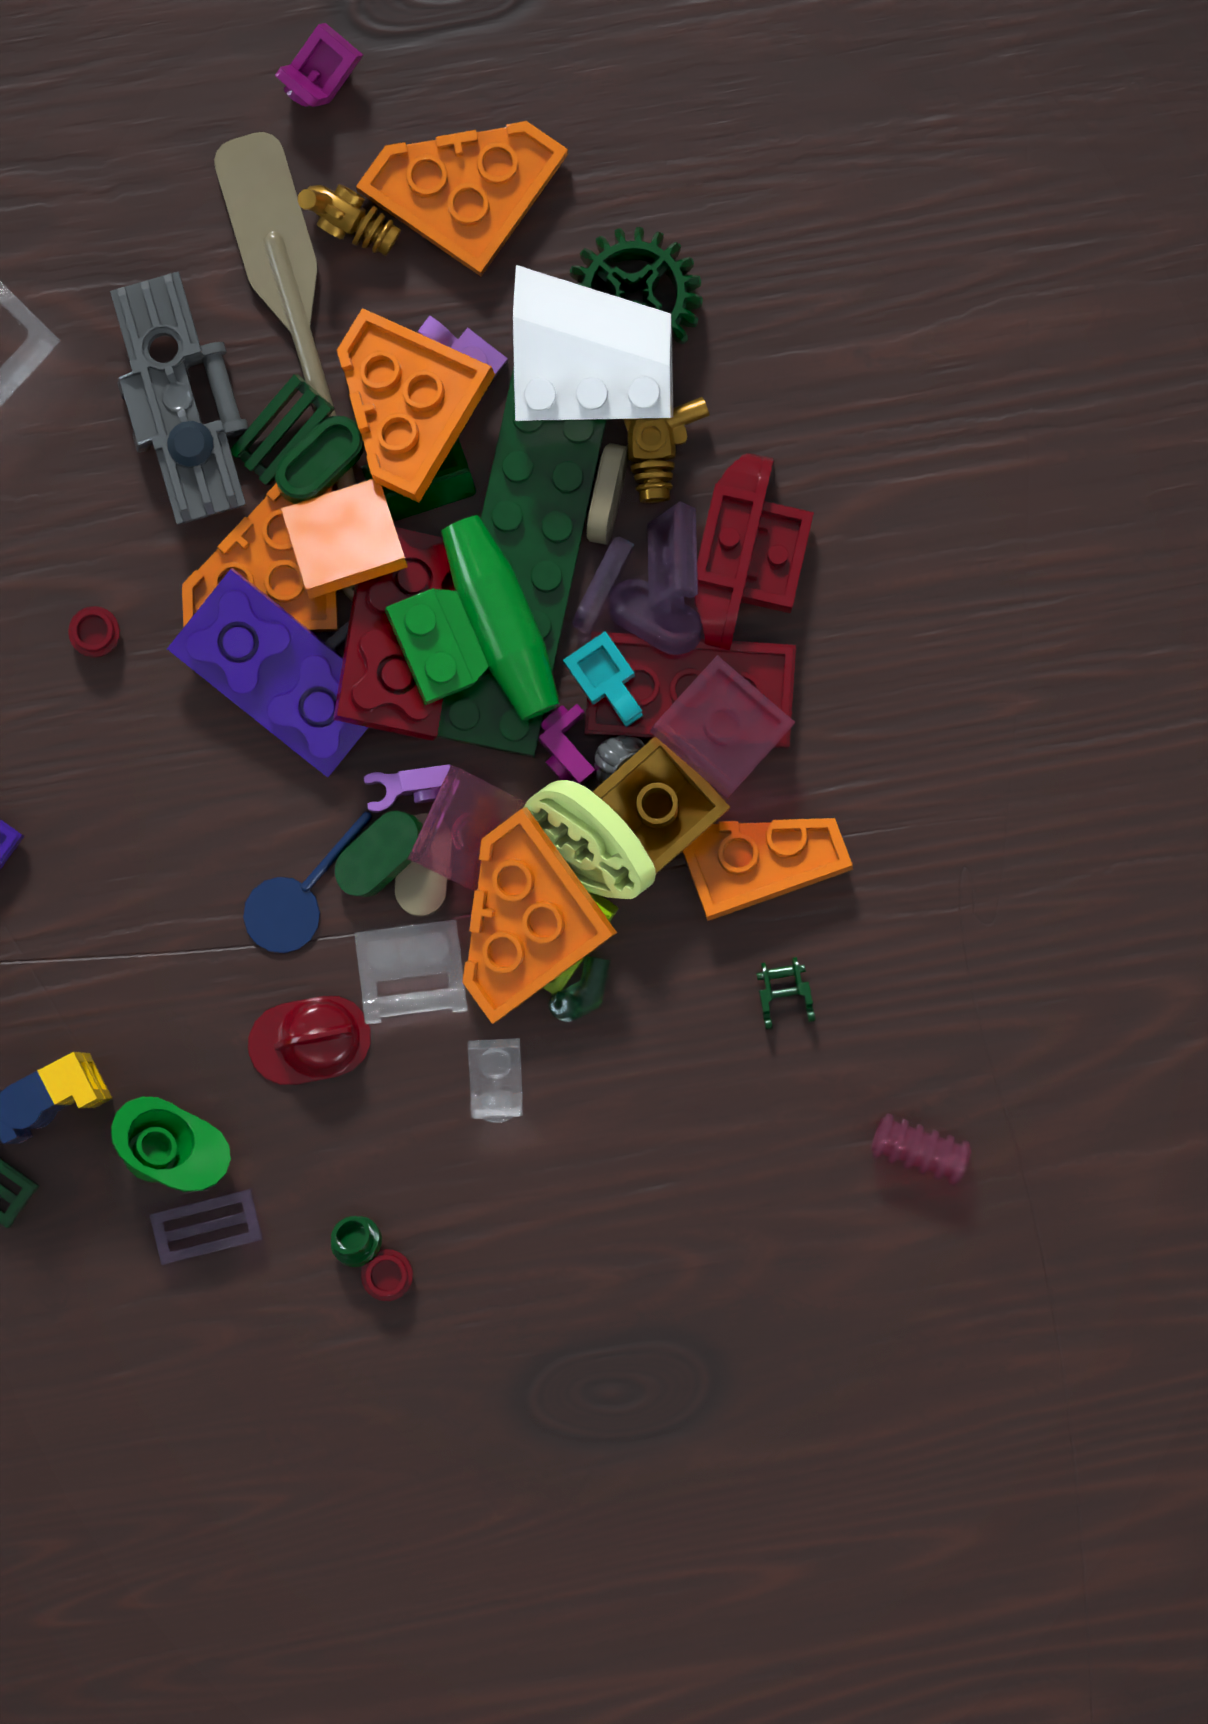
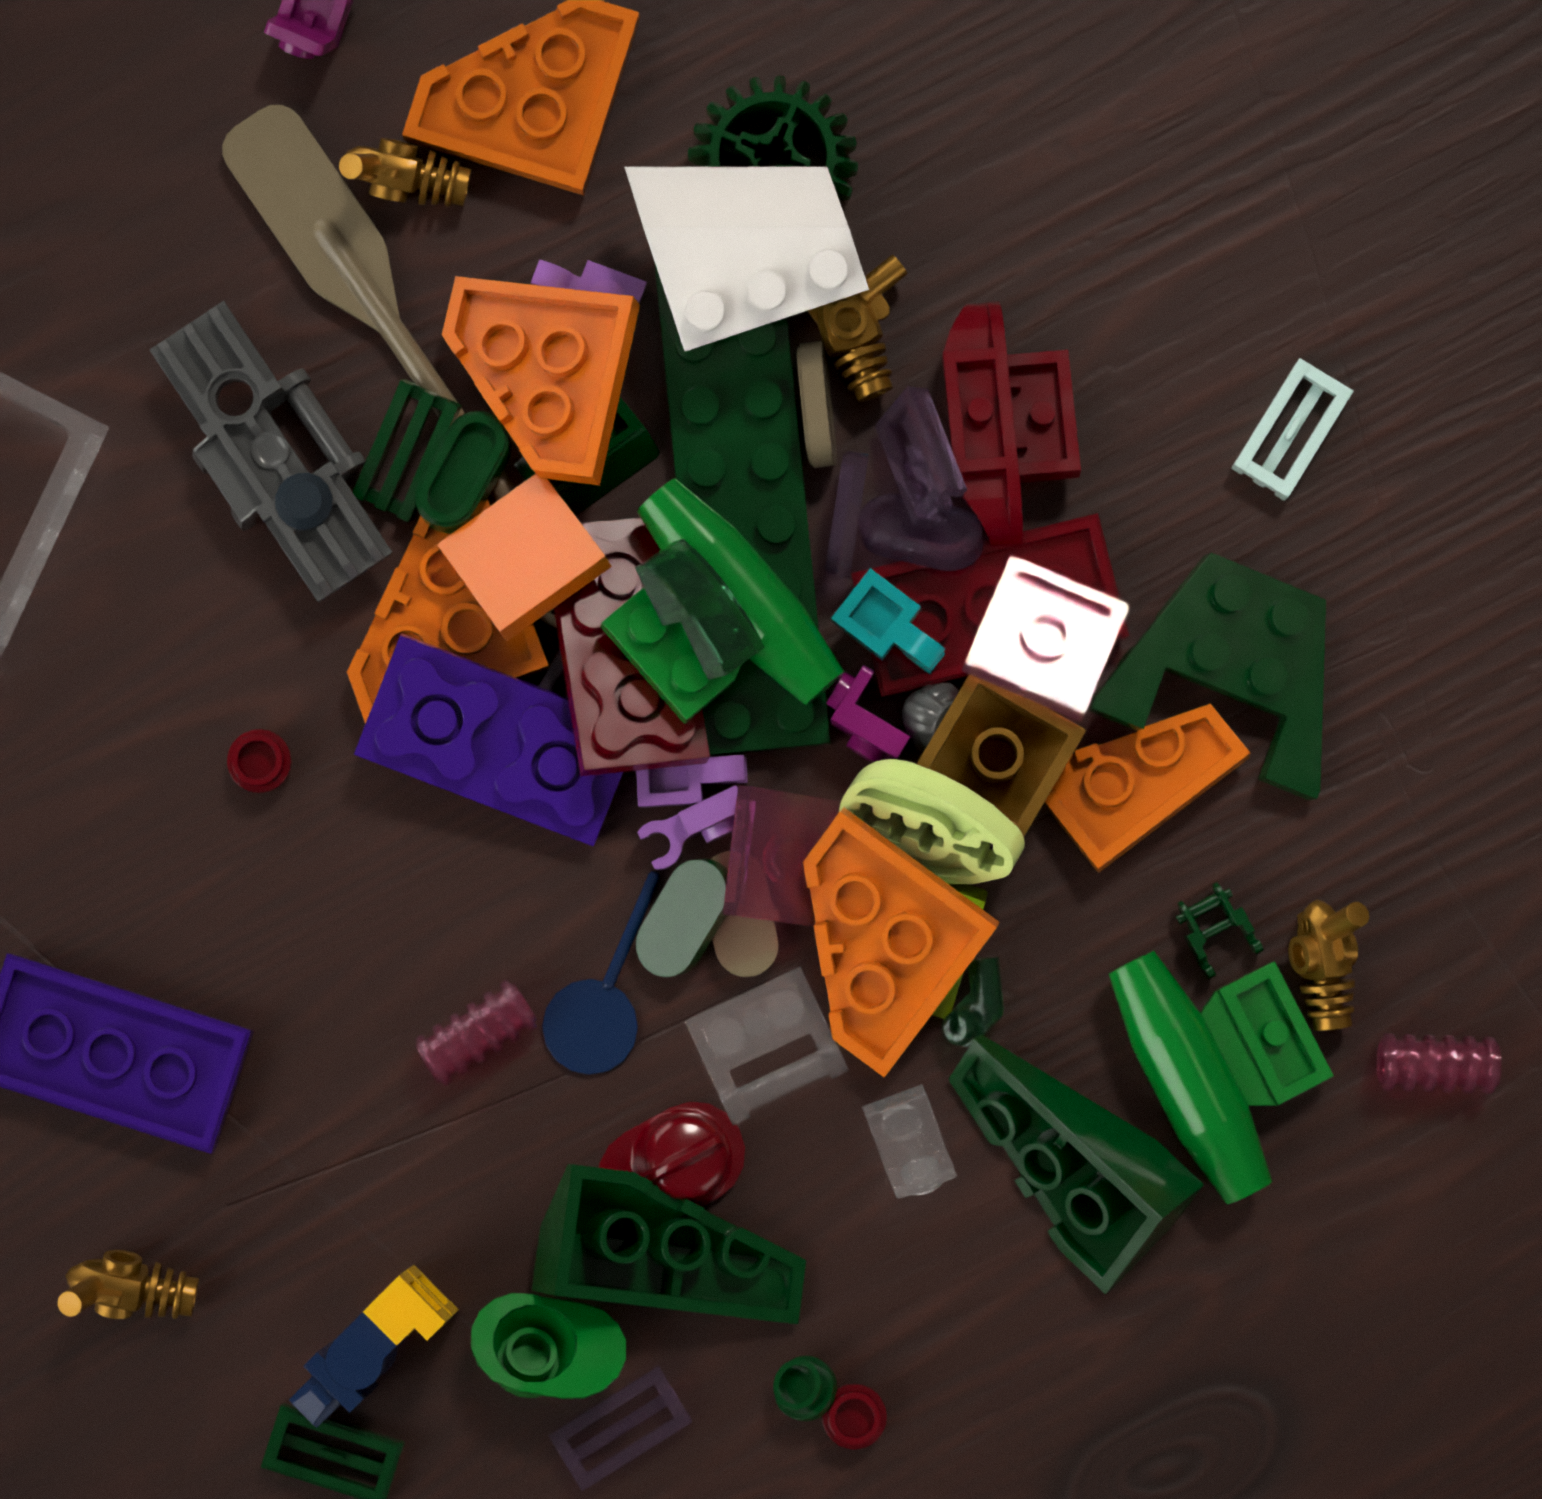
camera: 20 degrees left, 0 degrees up
(192, 891) = (476, 1033): none -> clear pink piece
(262, 1090) = (634, 1245): none -> dark green wedge
(412, 751) = (685, 783): none -> medium lavender plate
(461, 606) = (692, 592): none -> clear green slope
(629, 1148) = (1090, 1170): none -> dark green wedge
(746, 1094) = (1218, 1061): none -> green plate
(861, 1037) = (1325, 953): none -> pearl gold piece
(877, 779) = (1246, 642): none -> dark green wing
(934, 657) = (1264, 475): none -> light aqua tile

